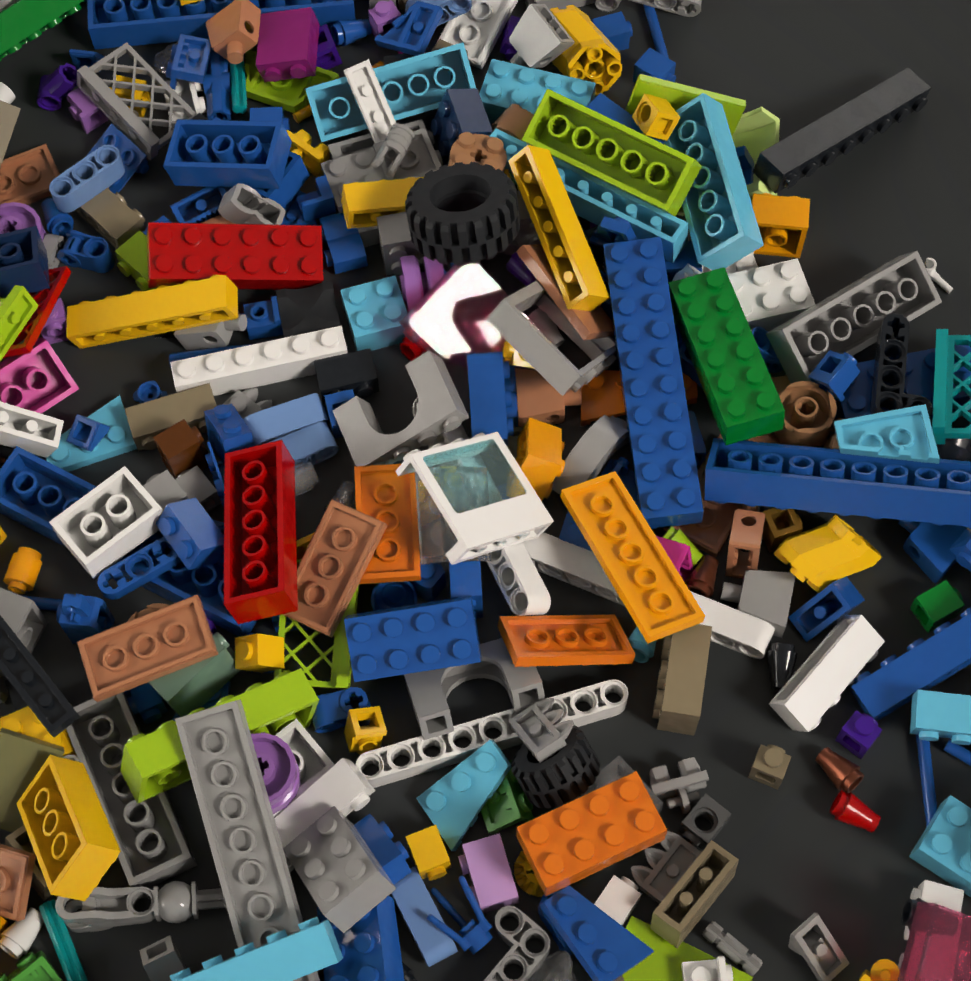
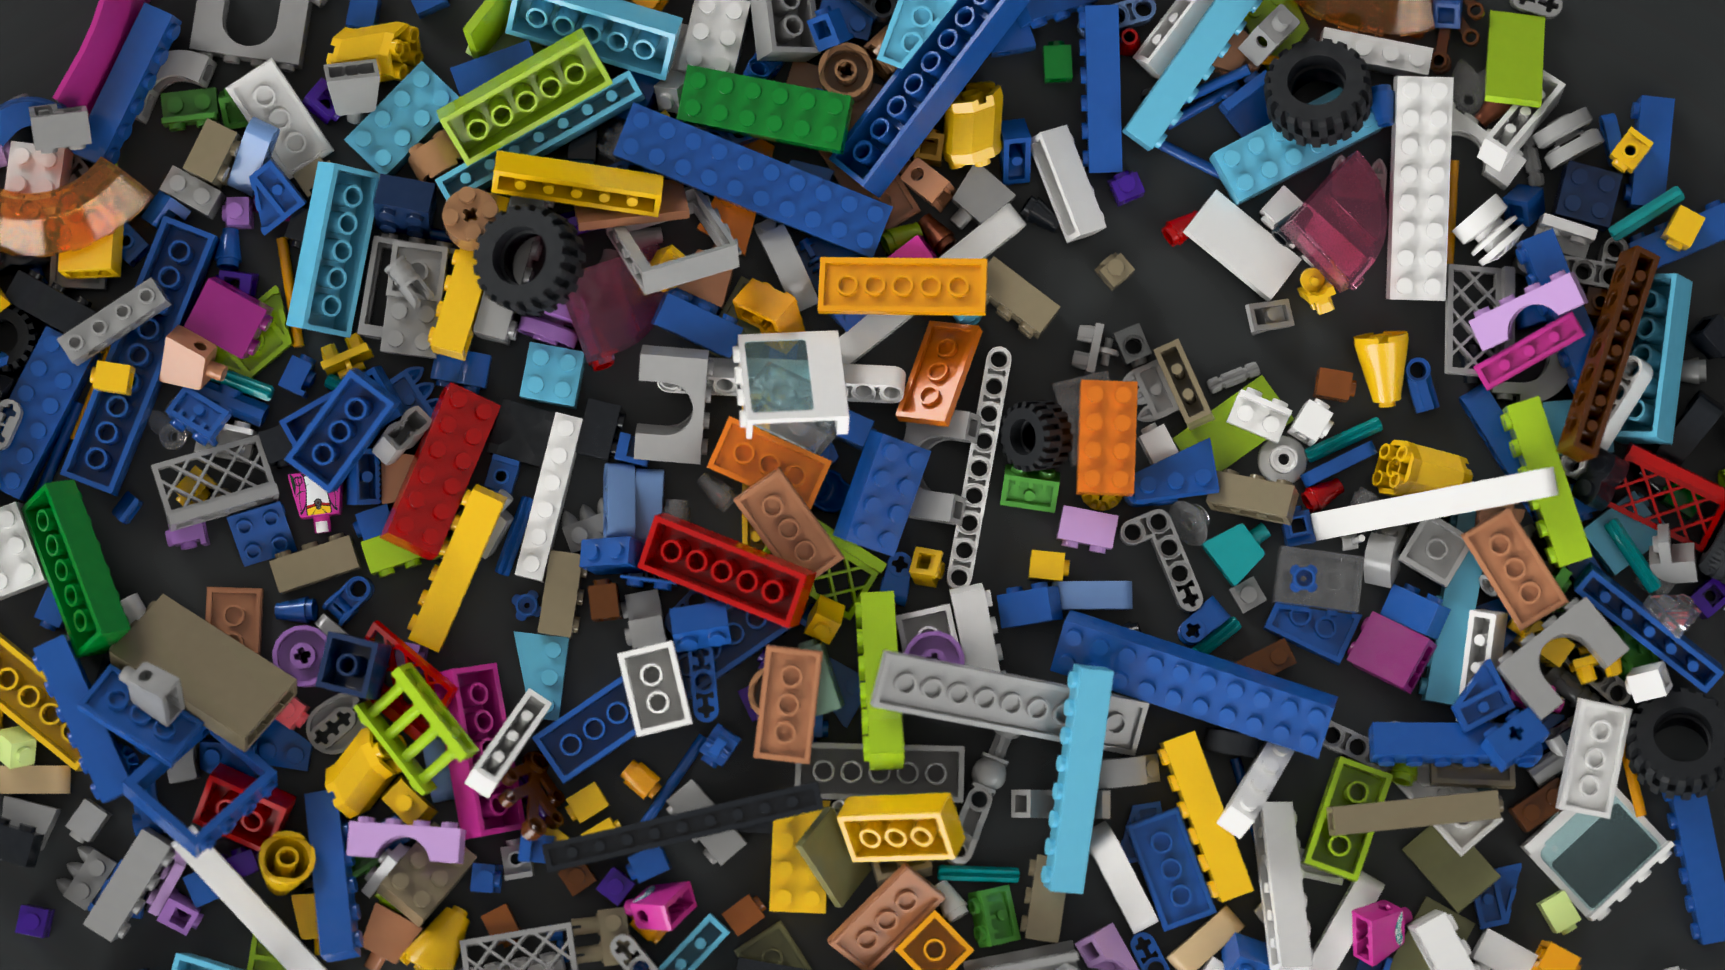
camera: 65 degrees left, 20 degrees up
(56, 86) = (153, 552): dark purple piece -> none
(86, 432) = (541, 673): blue slope -> none
(87, 178) = (277, 555): medium blue beam -> none
(160, 190) = (315, 502): none -> torso
(317, 203) = (411, 372): blue panel -> none
(339, 869) = (1036, 638): light grey brick -> none
(370, 100) = (346, 274): white tile -> none
(463, 792) = (1015, 515): medium azure wing -> none
(473, 934) = (1128, 563): blue plant -> none
(542, 729) = (1005, 433): light grey plate -> none
(612, 231) = (604, 133): blue wing -> none
(655, 117) = (507, 37): yellow brick -> none
(842, 772) = (1145, 219): copper cone -> none
(874, 882) = (1242, 245): none -> white tile

